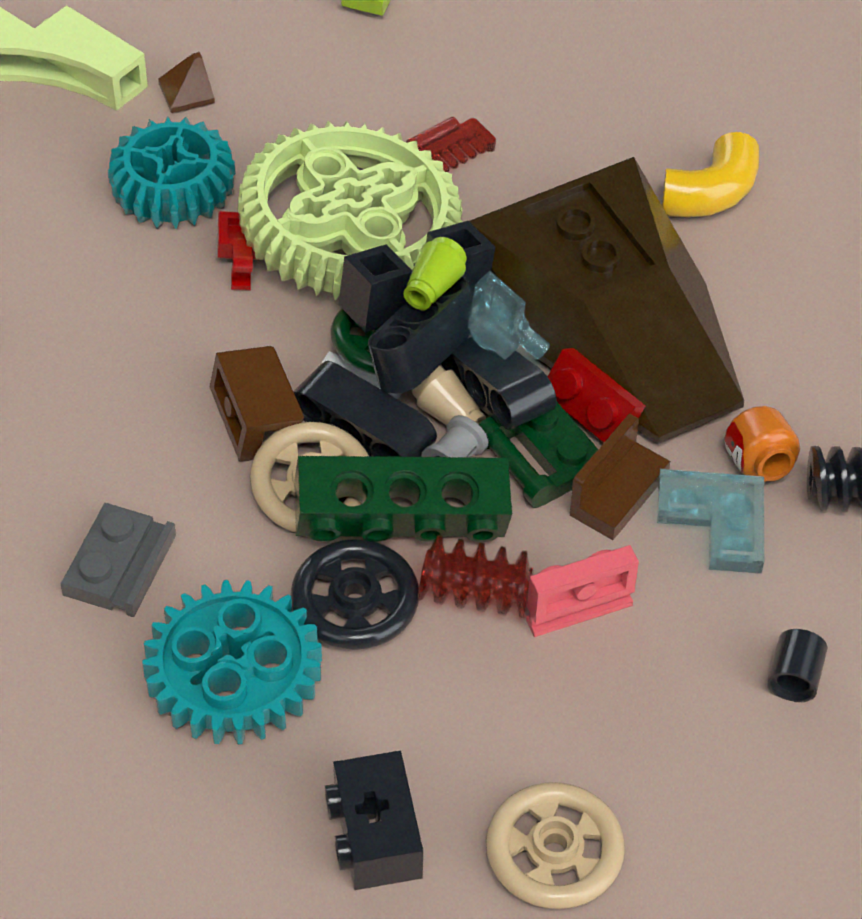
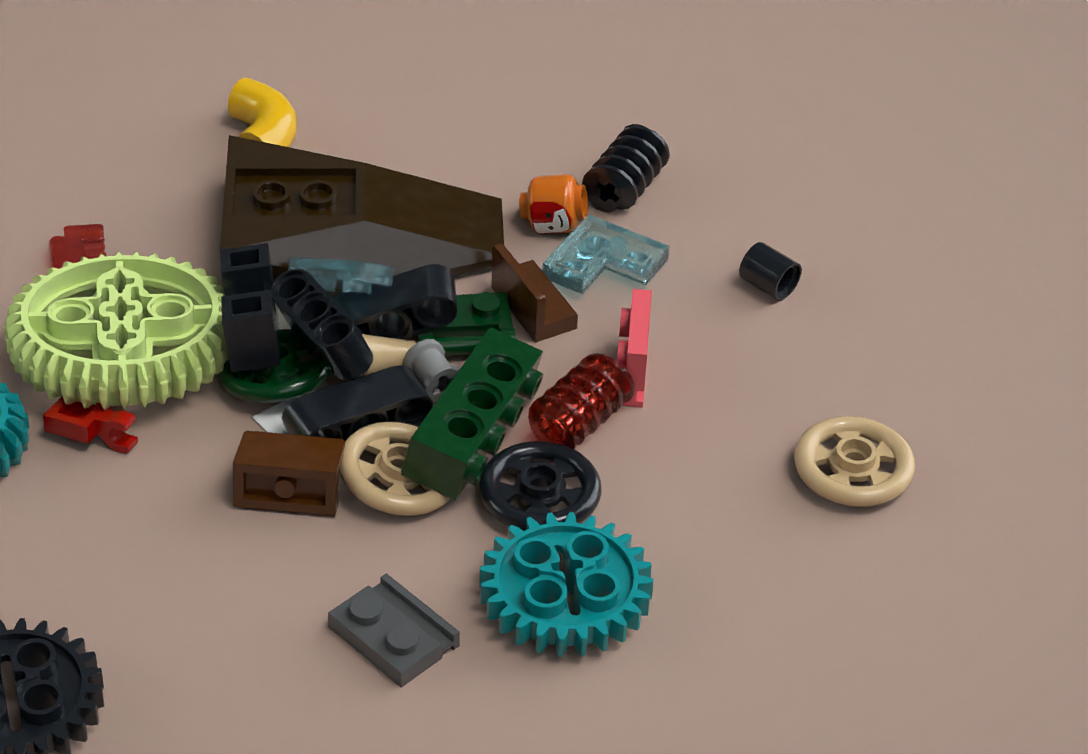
camera: 65 degrees left, 10 degrees down
(380, 850) = (780, 548): black brick -> none
(435, 271) = (279, 270): lime cone -> none
(591, 394) = (465, 261): red plate -> none

